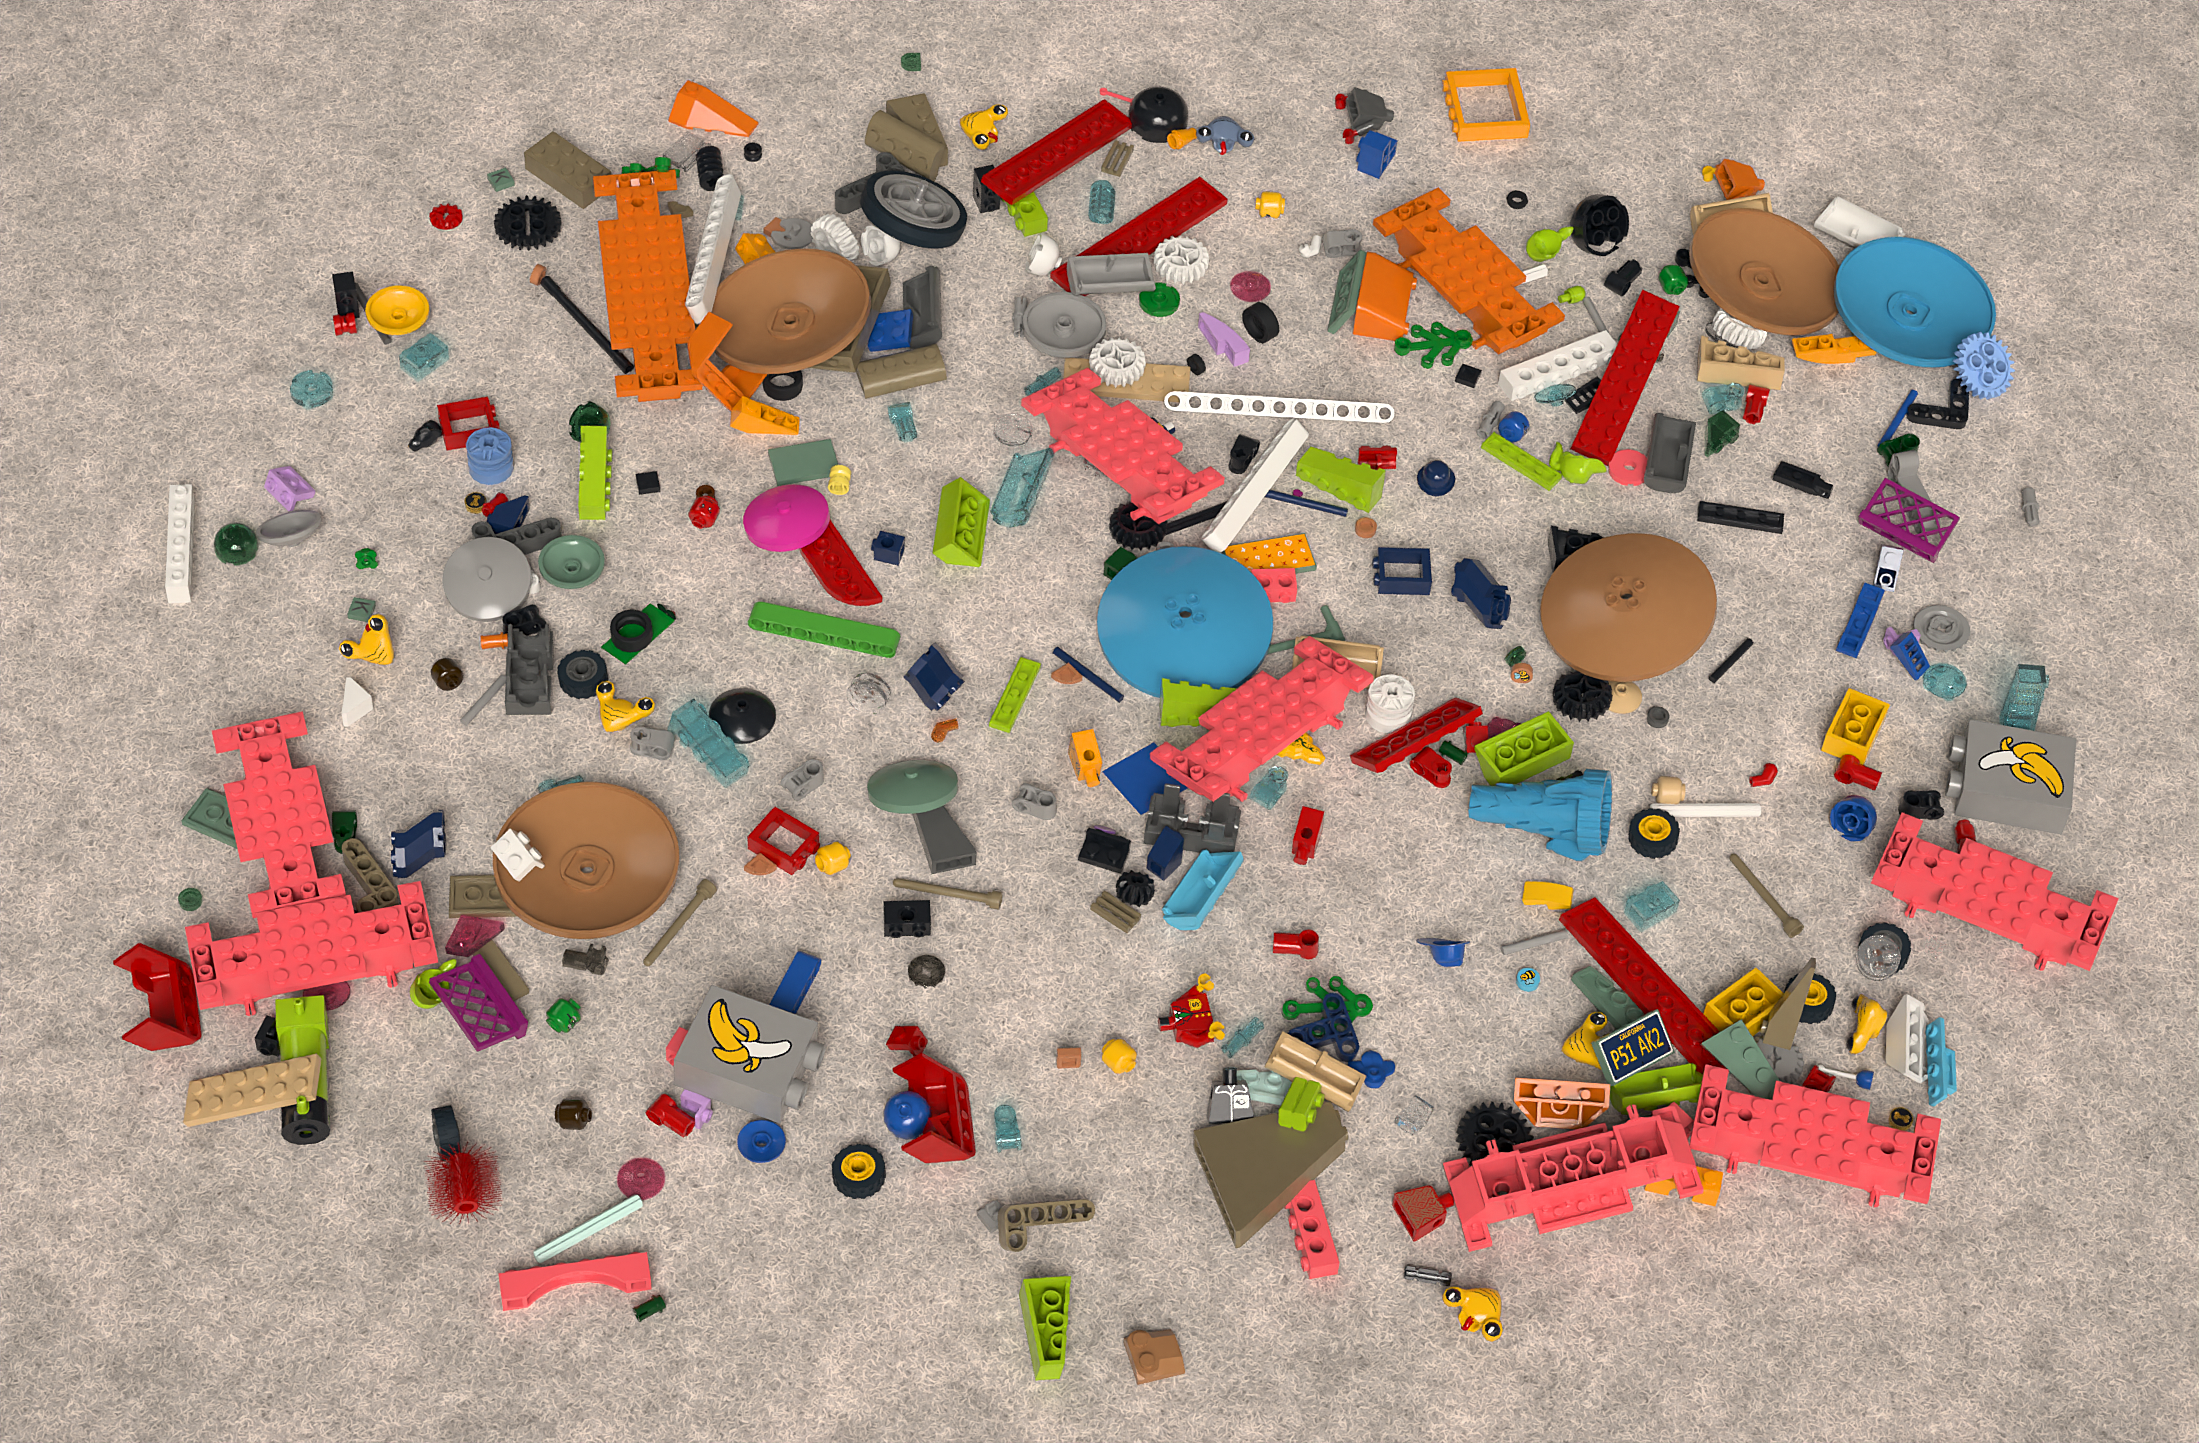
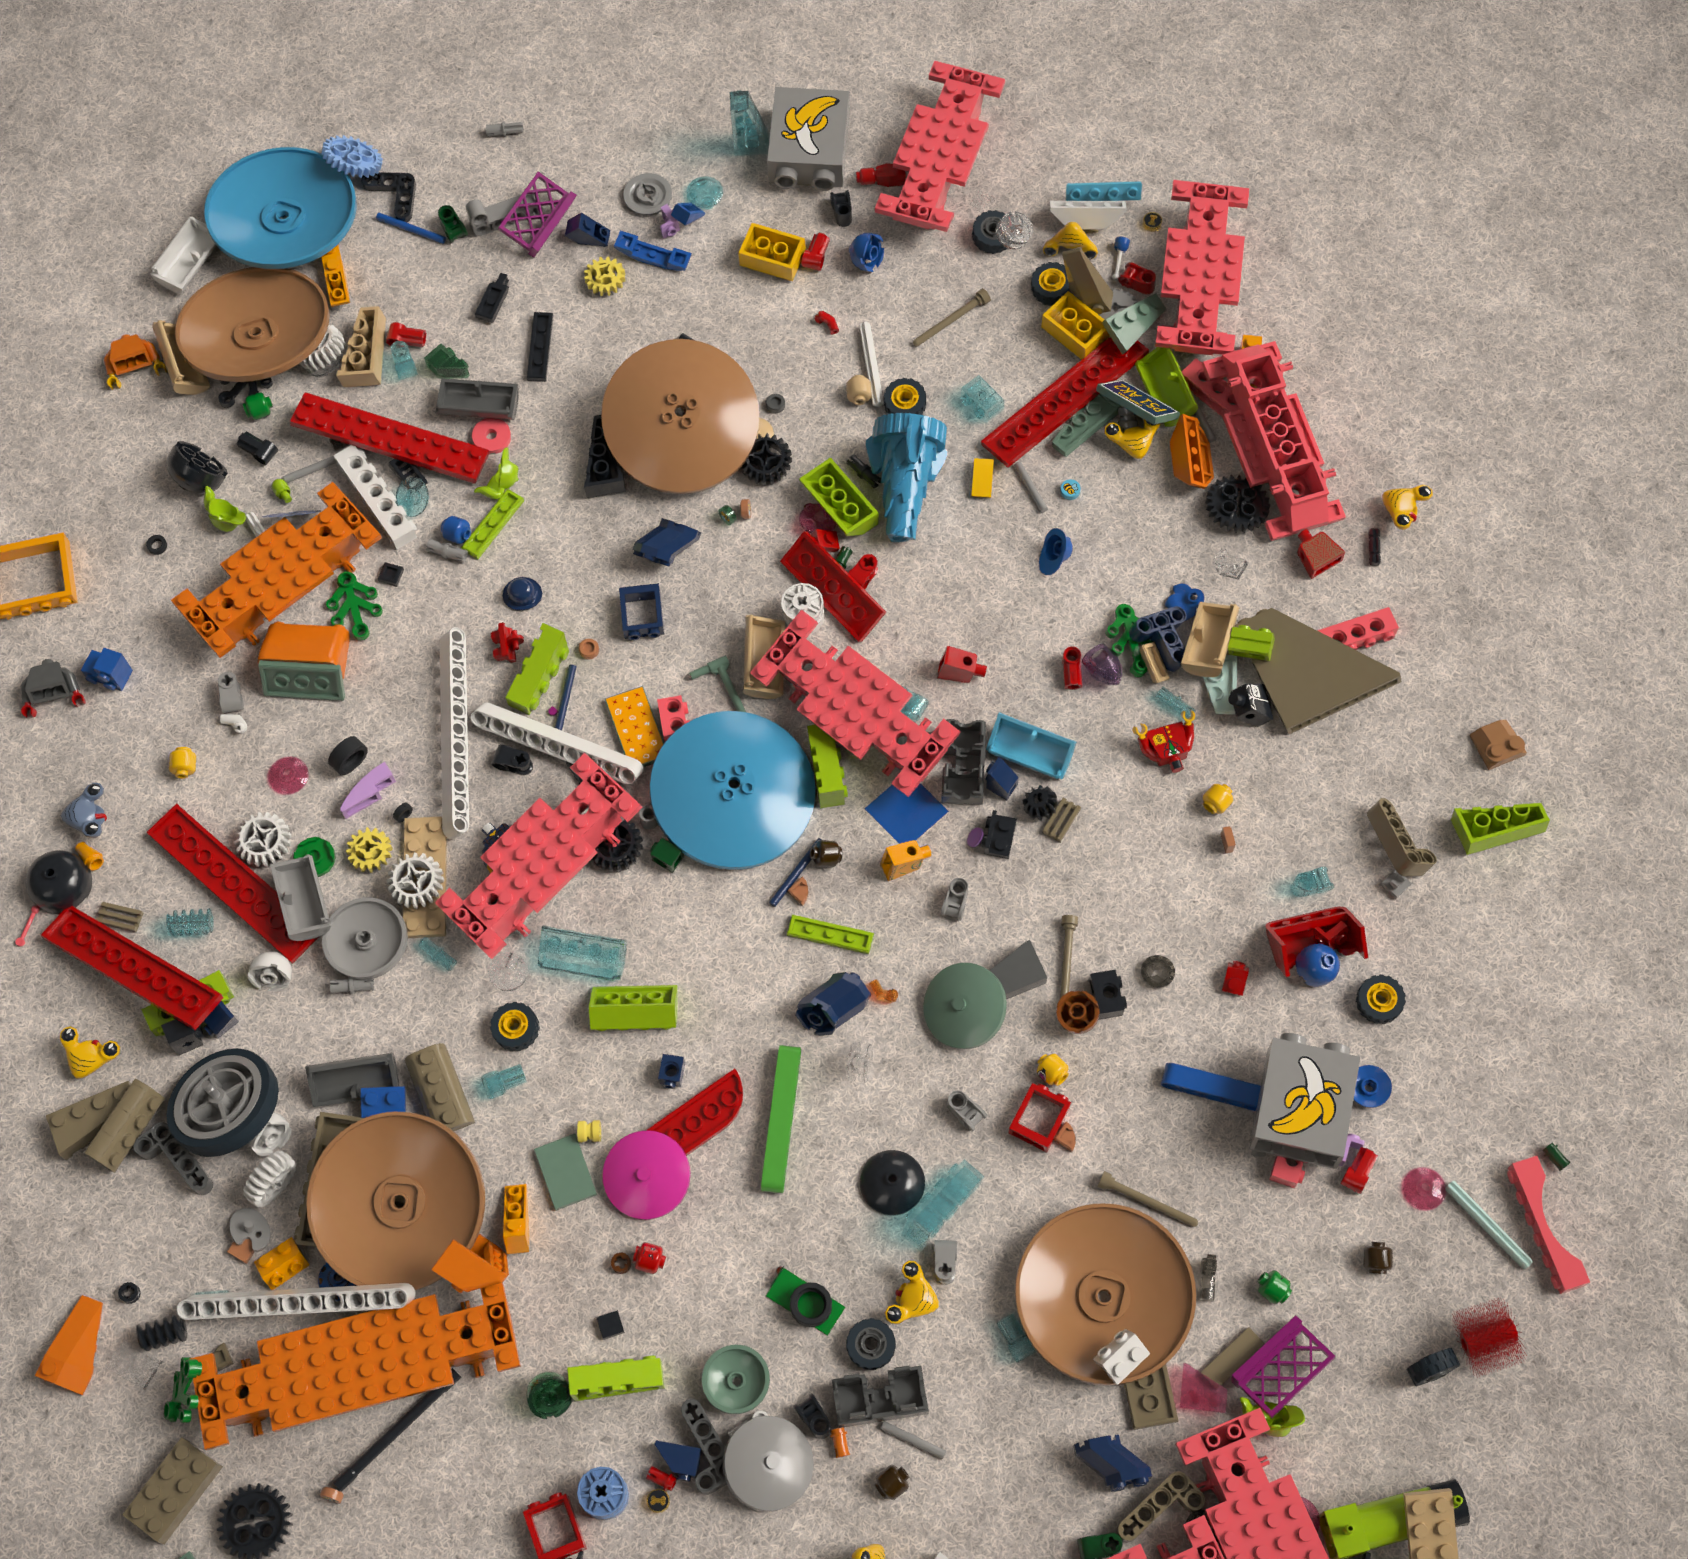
camera: 90 degrees left, 15 degrees up
(887, 881) = (1077, 1012): none -> dark orange cylinder
(956, 433) = (506, 1017): none -> black wheel
(999, 219) = (220, 1020): none -> dark blue slope
(1102, 695) = (826, 853): none -> dark brown head
(1149, 339) = (360, 848): none -> light yellow gear
(1290, 968) = (1105, 667): none -> clear purple helmet
(1292, 1018) = (1154, 662): none -> tan tile
(1539, 286) = (293, 513): none -> piece
(1828, 577) = (604, 275): none -> light yellow gear

